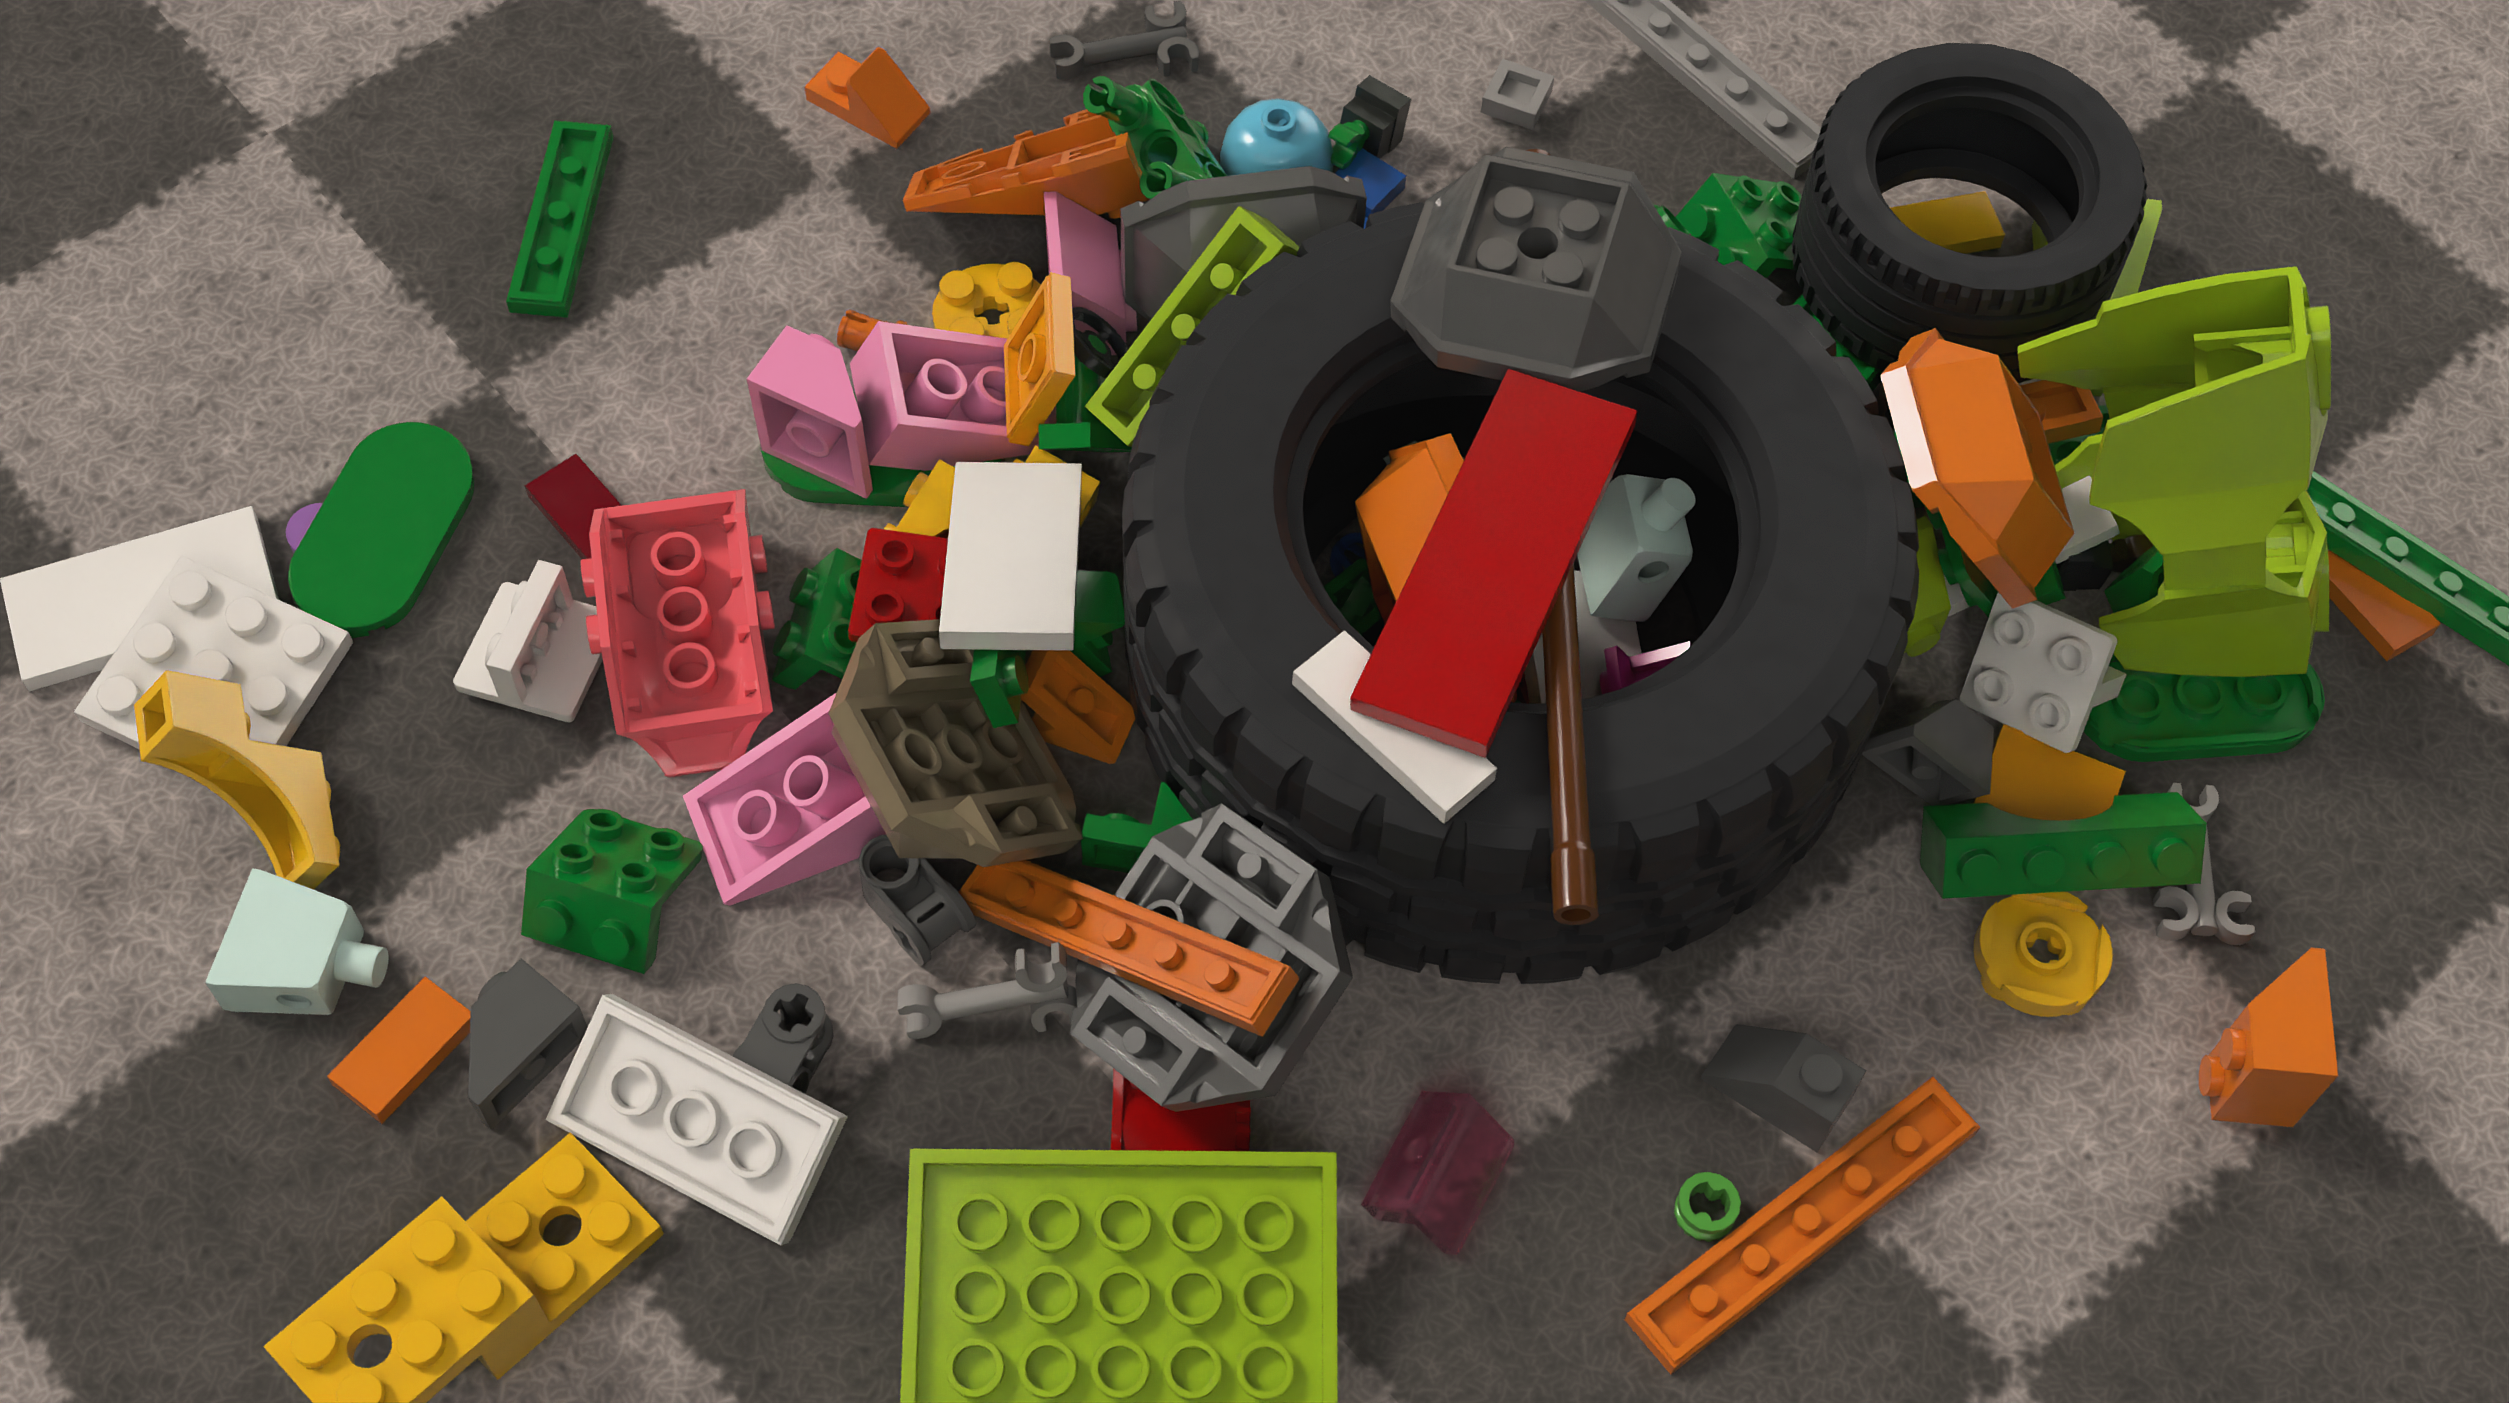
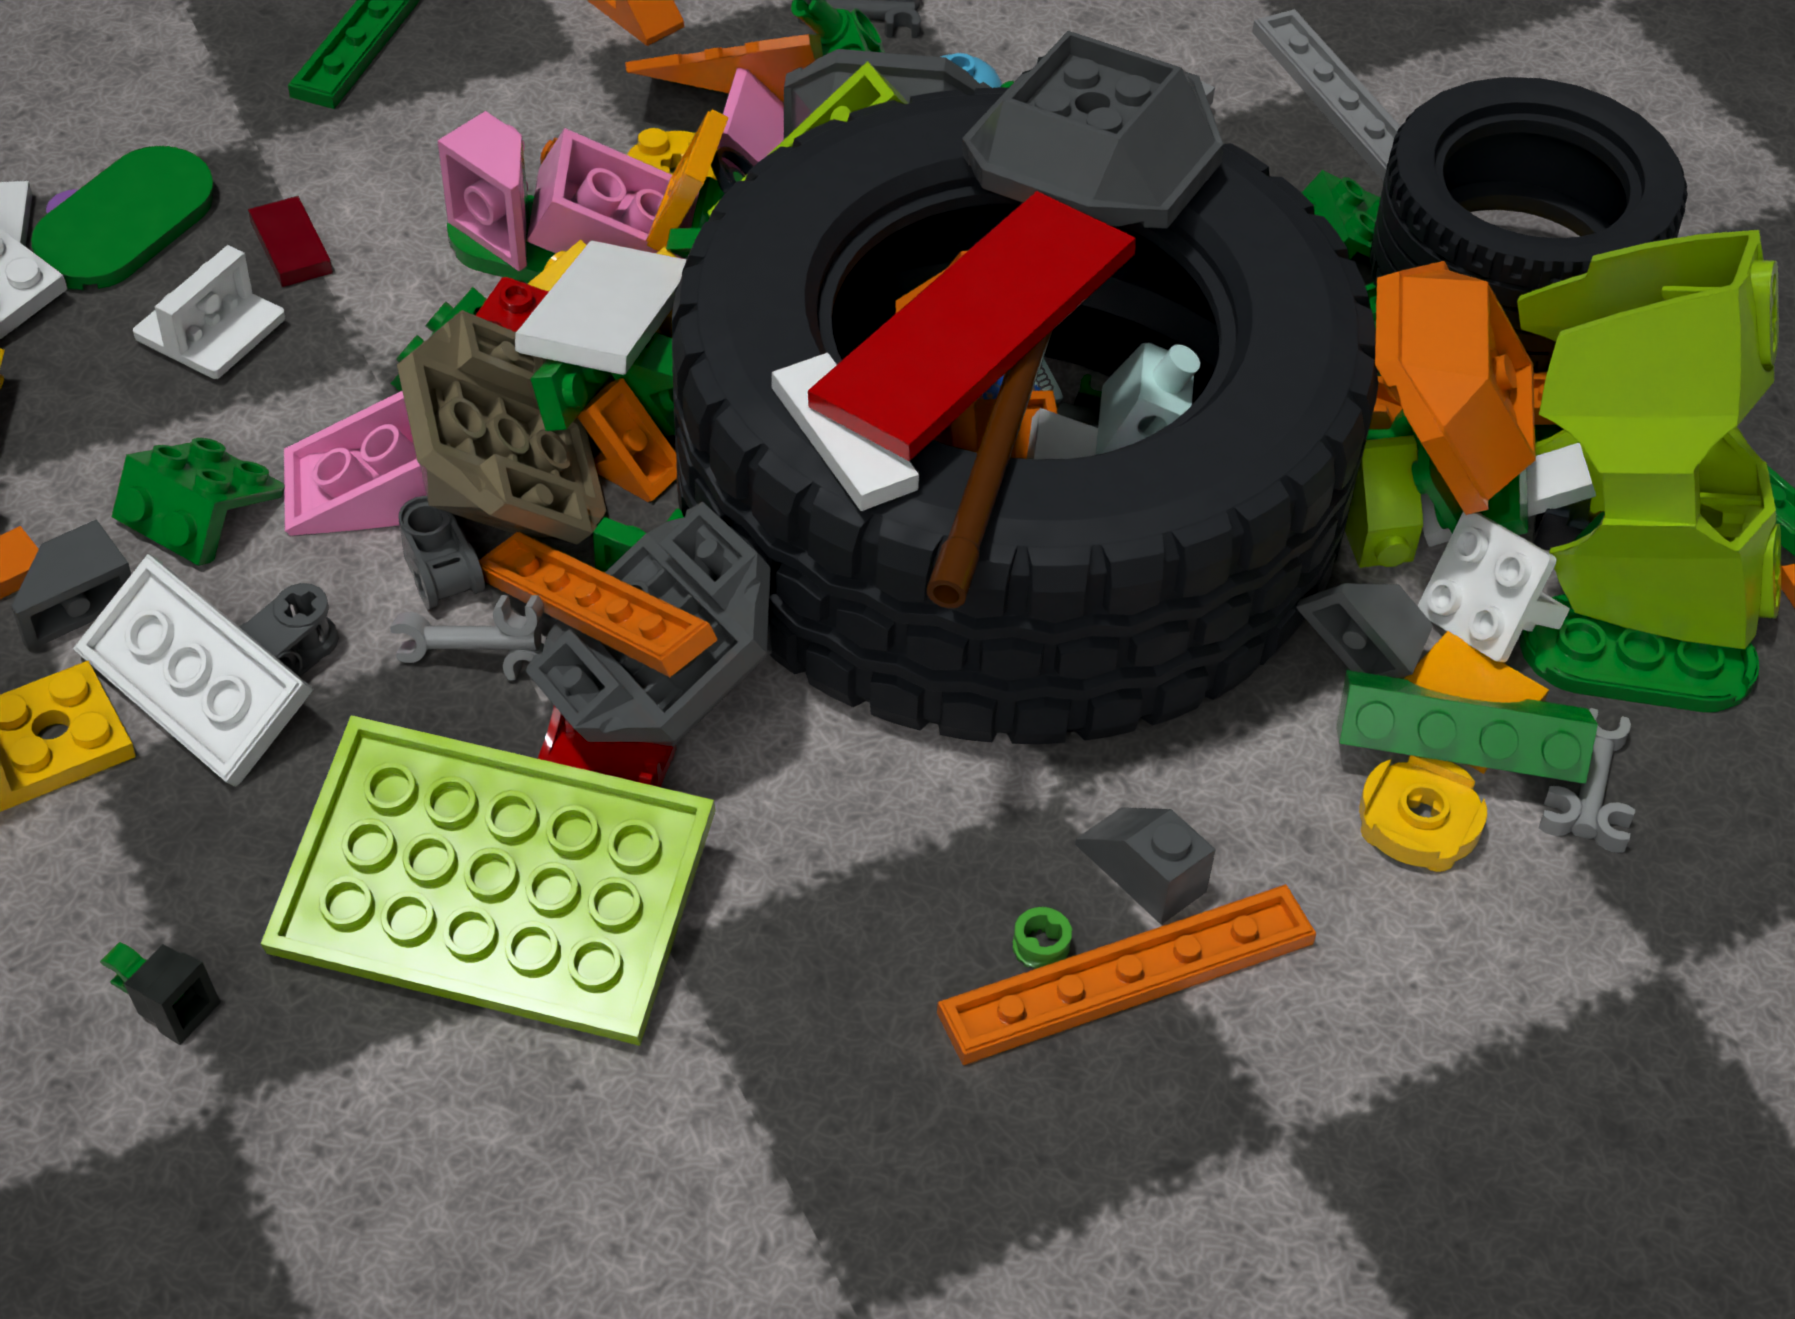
camera: 15 degrees right, 10 degrees down
(681, 626) = (322, 321): coral slope -> none
(1440, 1168) = (815, 855): clear pink panel -> none
(2276, 1051) = (1604, 920): orange slope -> none

